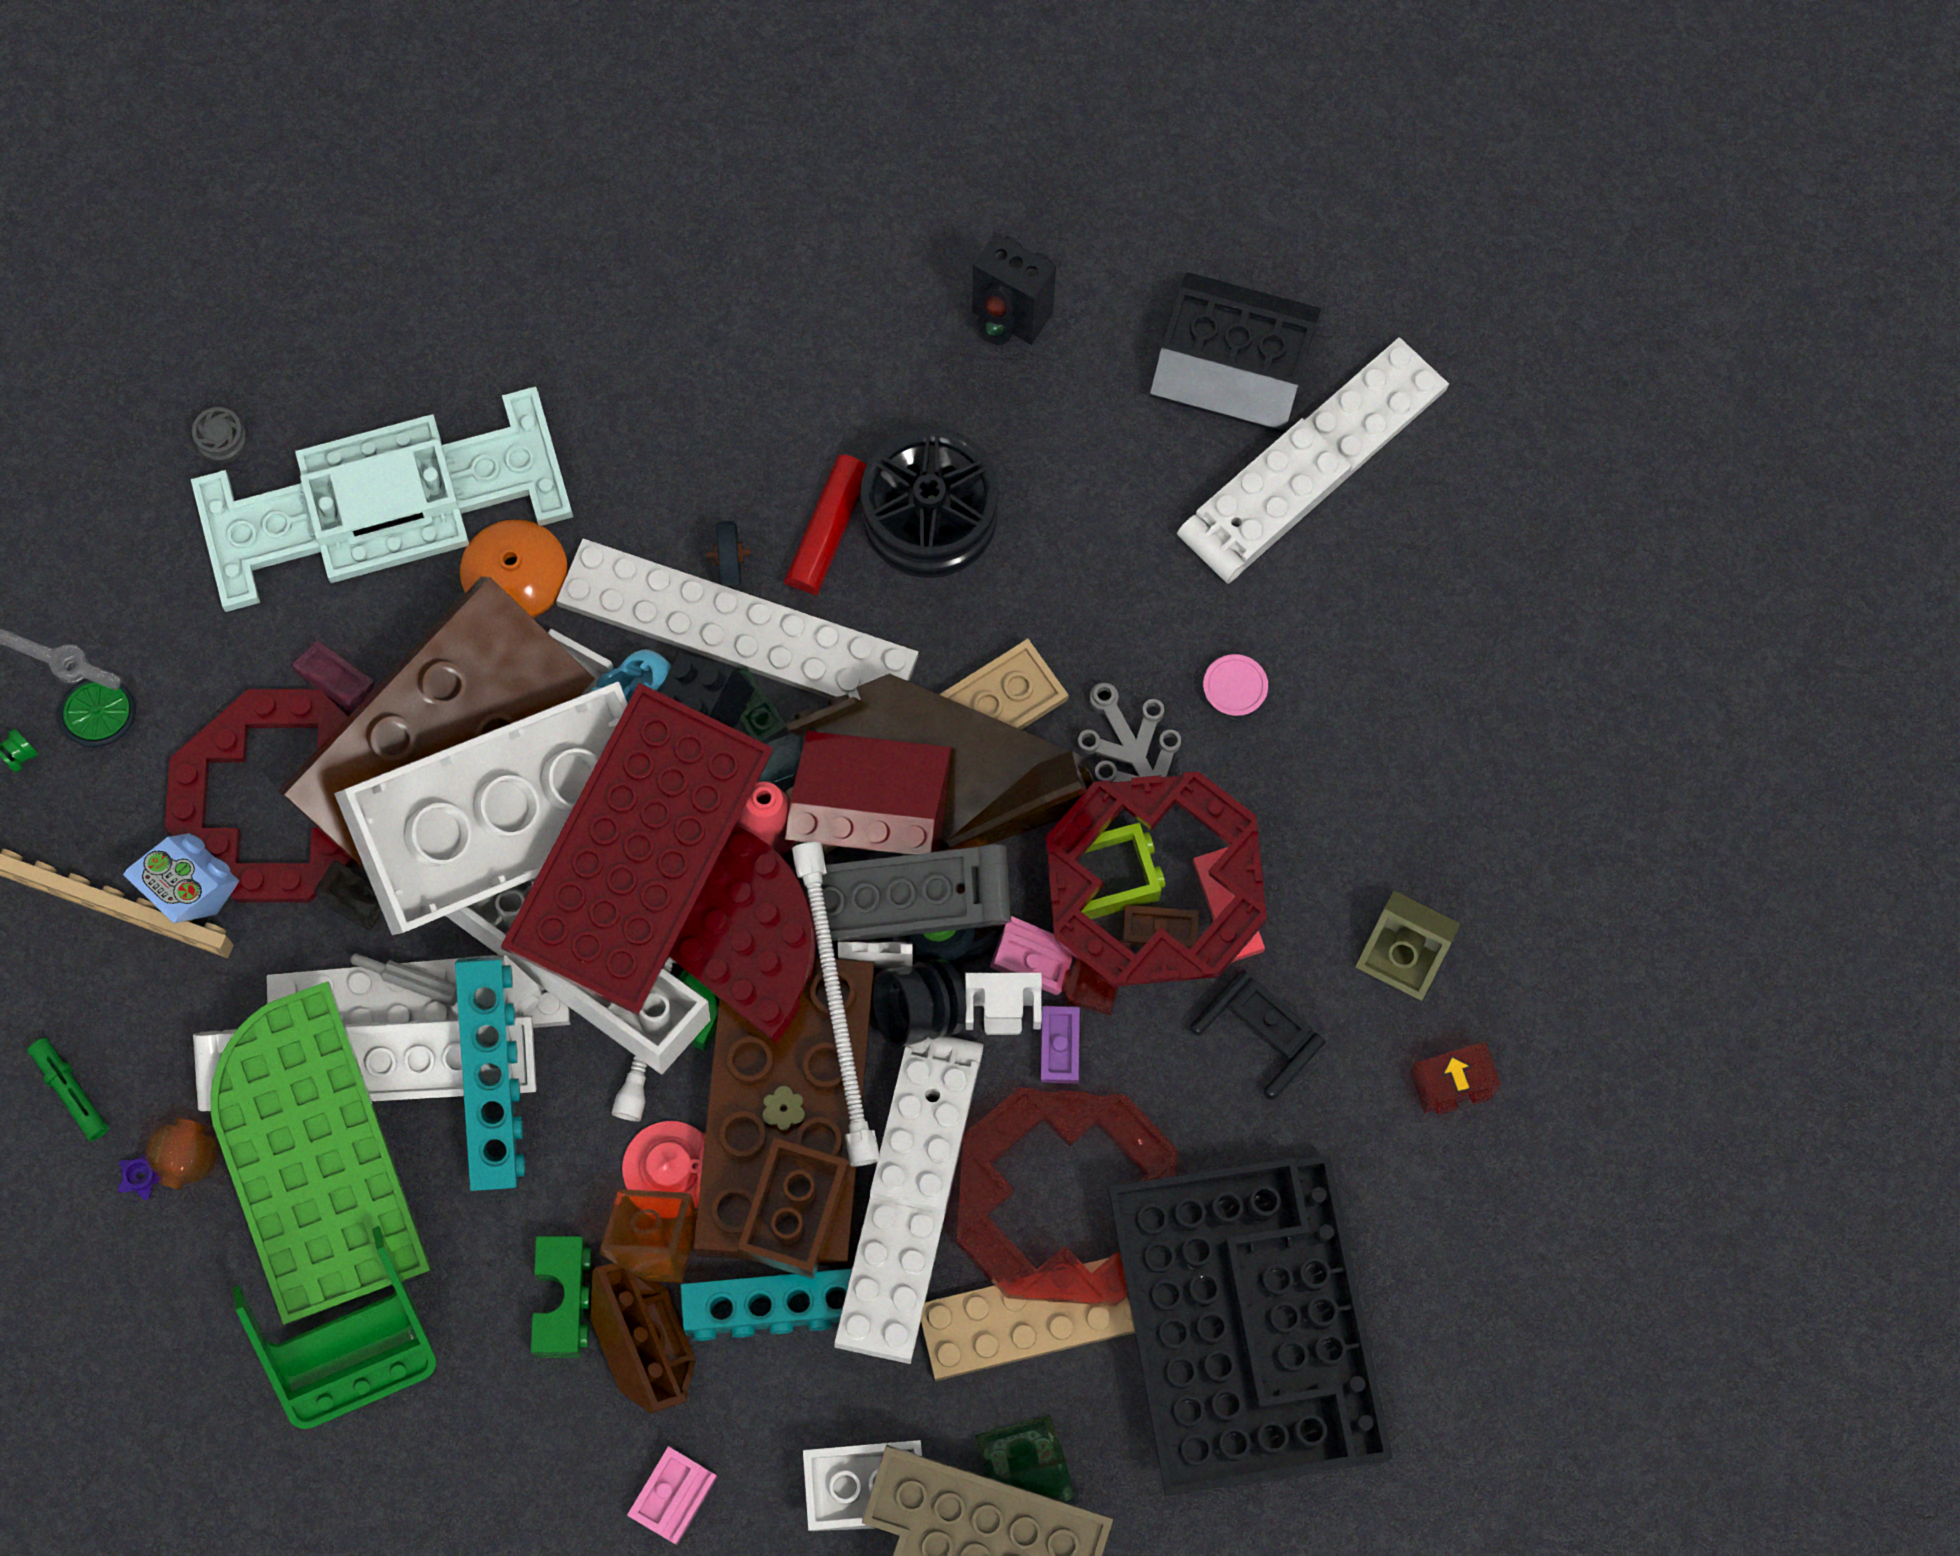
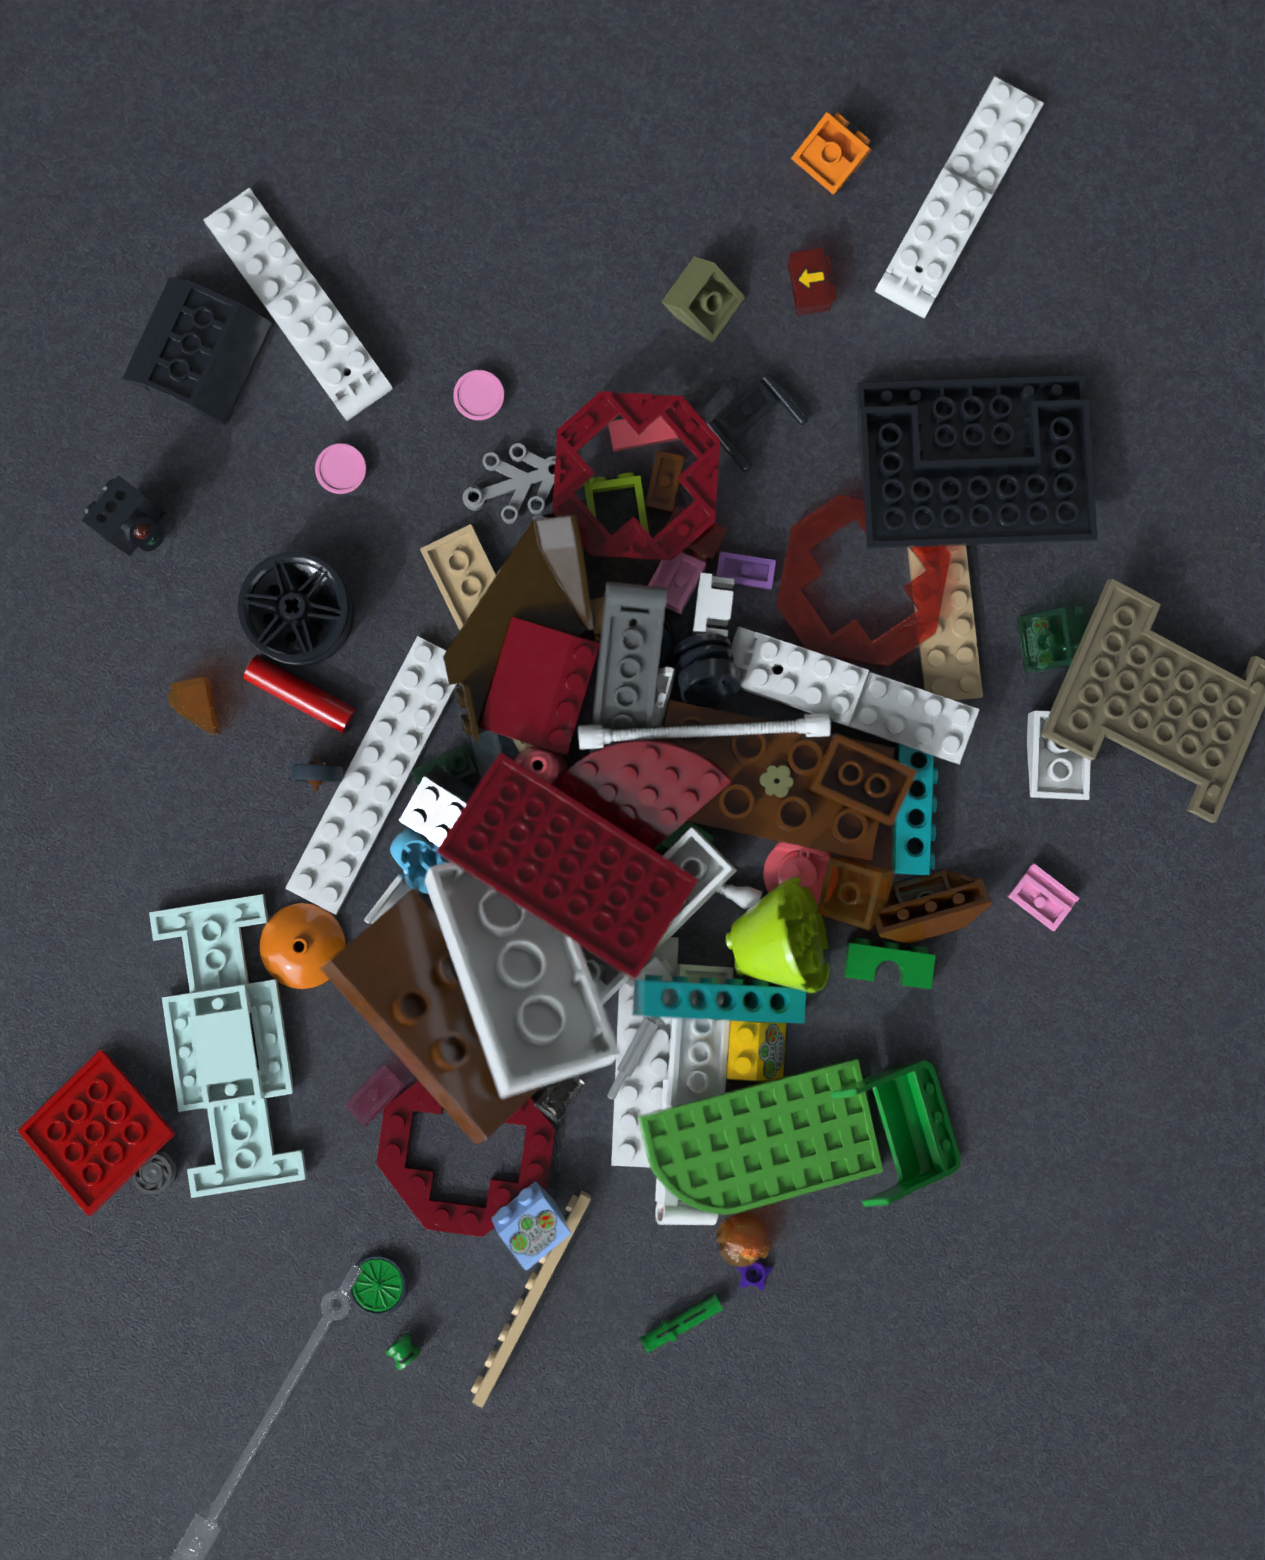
camera: 80 degrees left, 15 degrees up
(262, 361) = (96, 1132): none -> red plate
(428, 1137) = (755, 1050): none -> yellow slope
(578, 1148) = (782, 939): none -> lime cone
(797, 406) = (195, 702): none -> clear orange slope
(1115, 533) = (340, 468): none -> bright pink piece
(1607, 1262) = (959, 197): none -> white hinge
(1634, 1085) = (832, 152): none -> orange plate

